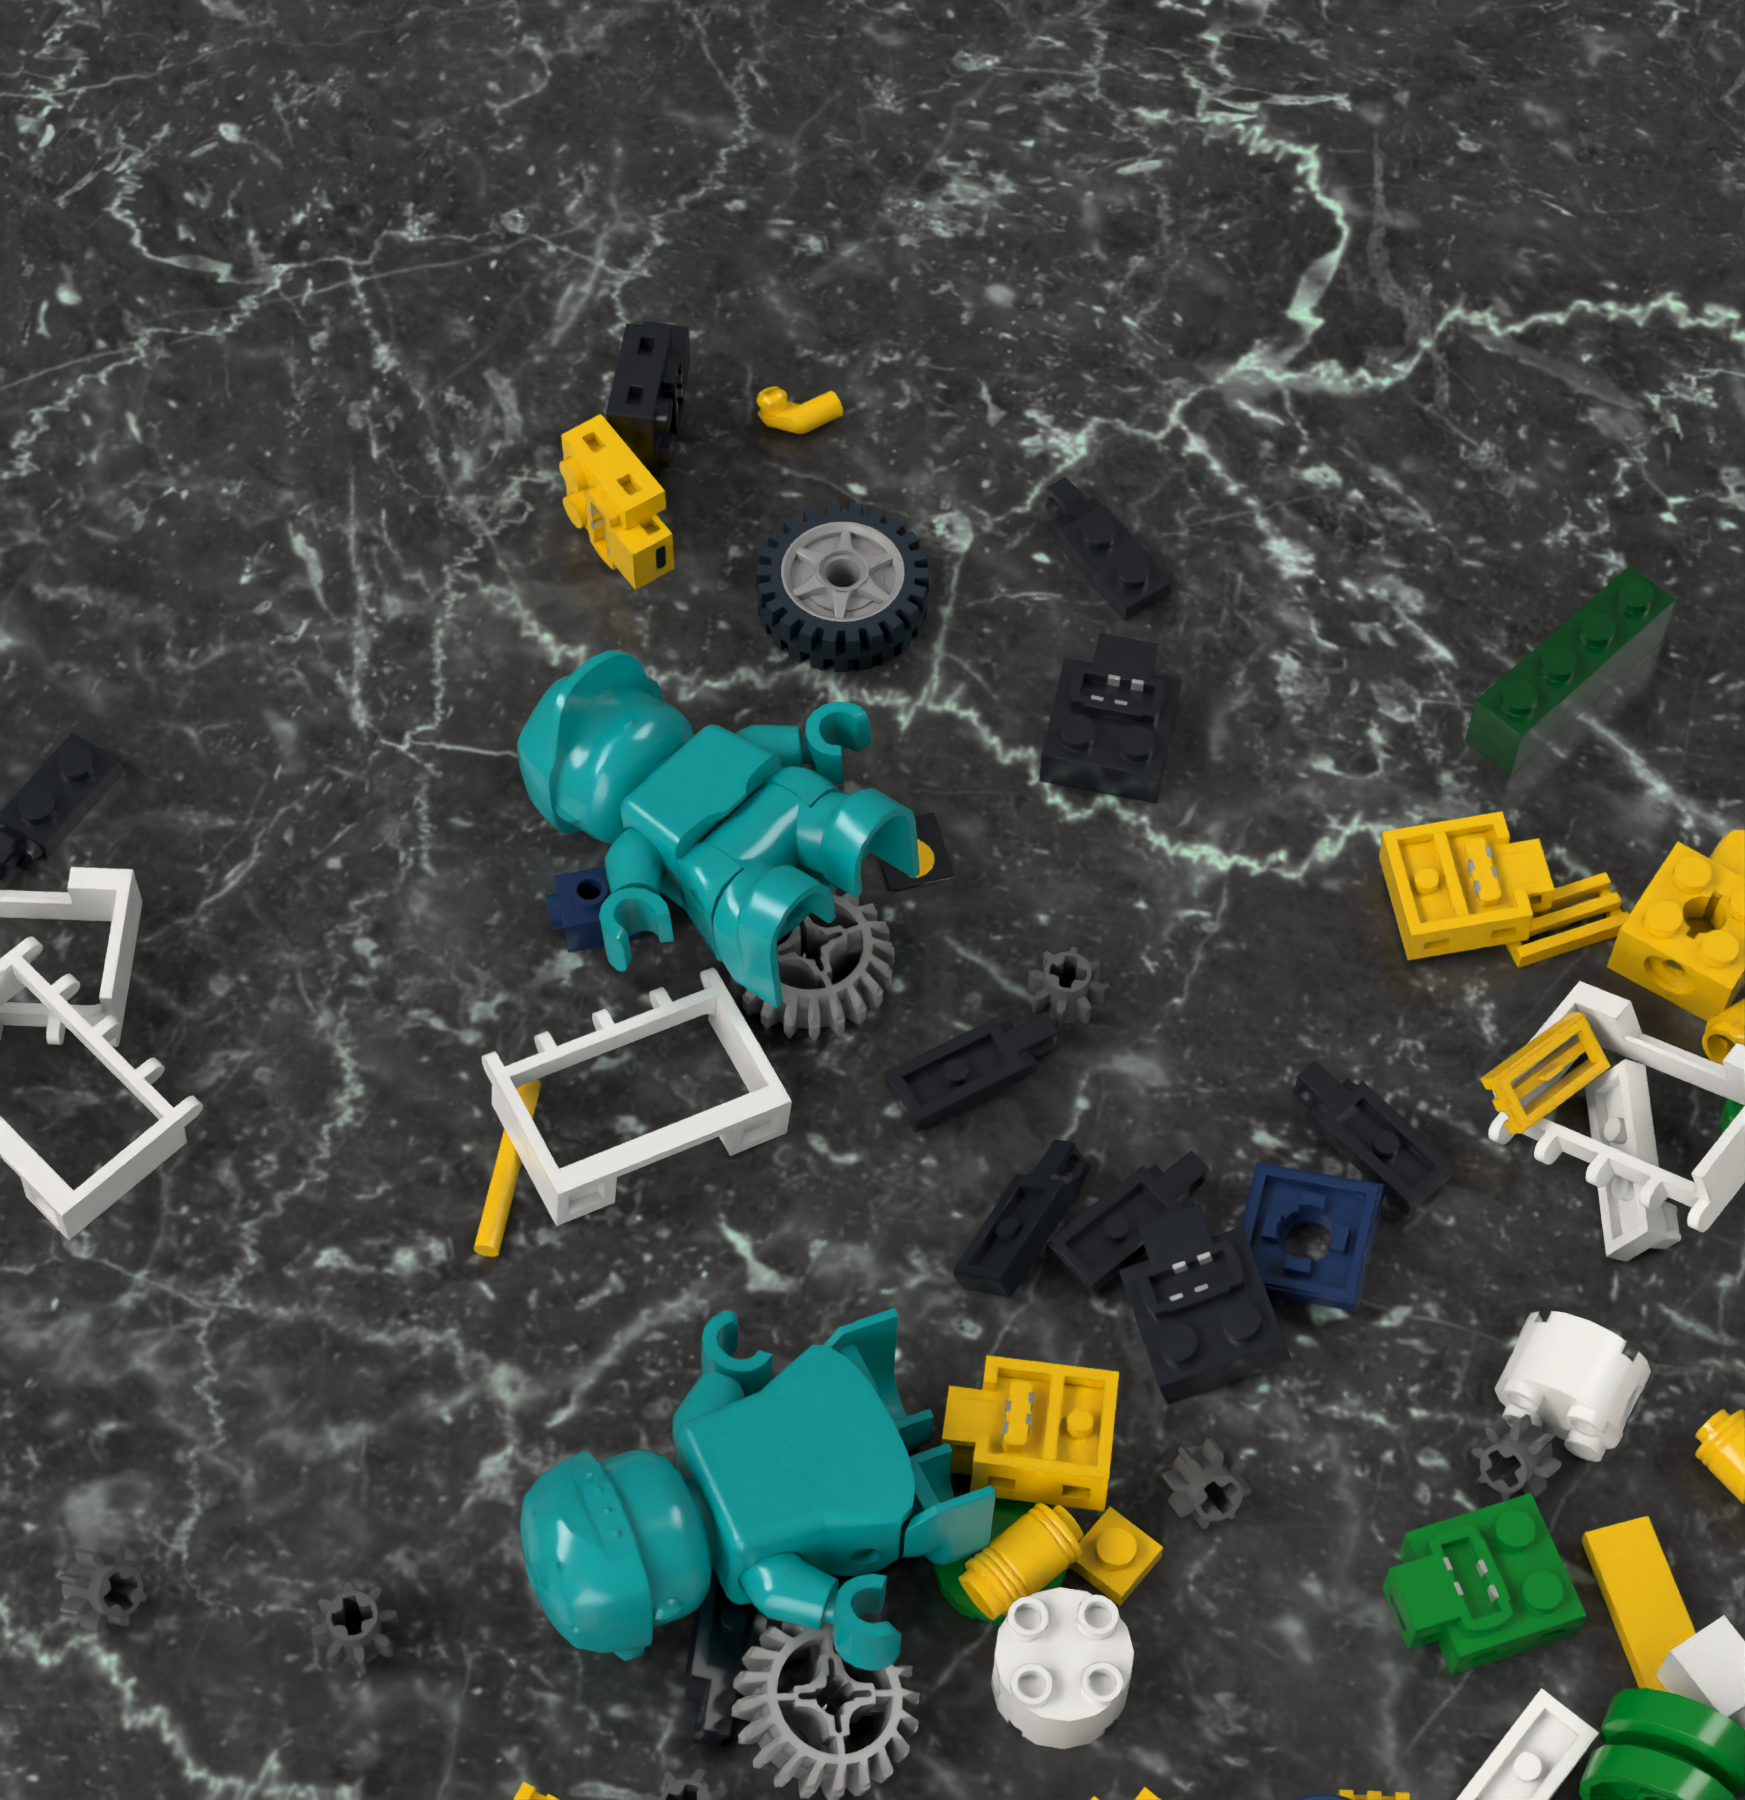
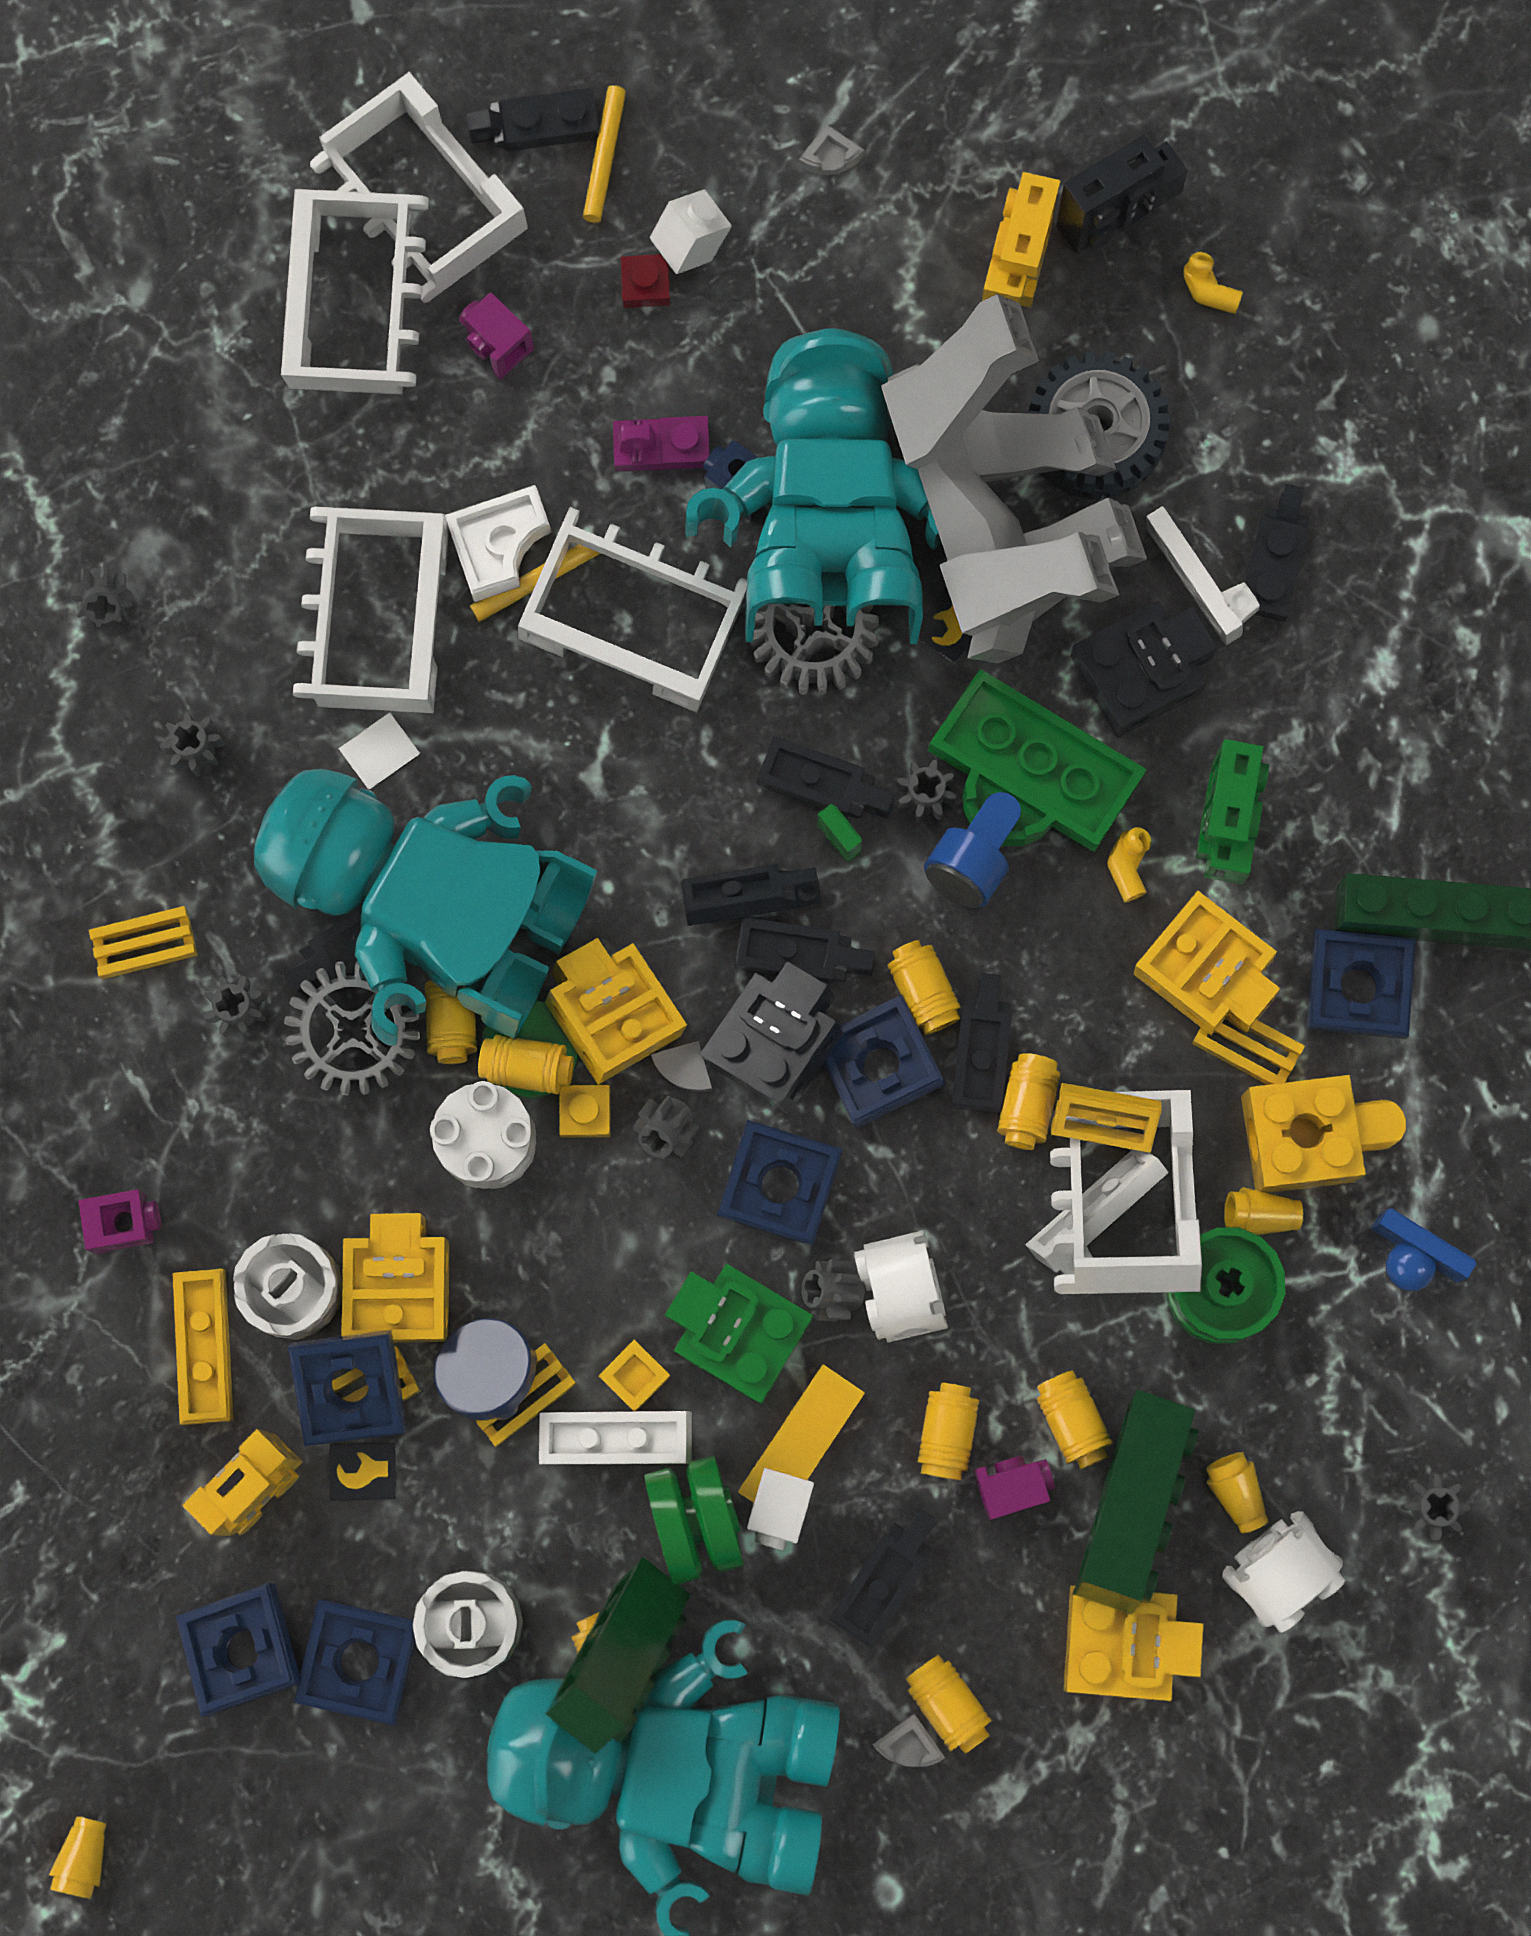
camera: 55 degrees right, 20 degrees up
(145, 778) = (604, 154): none -> yellow bar
(224, 999) = (496, 334): none -> magenta brick
(308, 839) = (645, 281): none -> dark red plate
(309, 754) = (690, 231): none -> white brick
(352, 598) = (830, 153): none -> light grey tile
(430, 1168) = (495, 538): none -> white tile
(485, 951) = (661, 443): none -> magenta hinge
(504, 1338) = (433, 561): none -> white hinge
(532, 1448) = (379, 751): none -> white sticker
(778, 674) = (993, 569): none -> light grey animal
(915, 1610) = (448, 1026): none -> yellow head
(1039, 1092) = (840, 832): none -> green tile
(1065, 617) = (1223, 609): none -> white hinge
(1140, 904) = (1022, 780): none -> green plate
(1152, 1424) = (683, 1067): none -> light grey tile
(1261, 1134) = (924, 987): none -> yellow head
(1287, 881) = (1125, 860): none -> yellow arm
(1328, 748) = (1232, 811): none -> green piece
(1362, 1384) = (769, 1148): none -> dark blue piece
(1450, 1726) = (634, 1376): none -> yellow plate
(1464, 1136) = (1029, 1101): none -> yellow head
(1586, 752) = (1385, 959): none -> dark blue piece

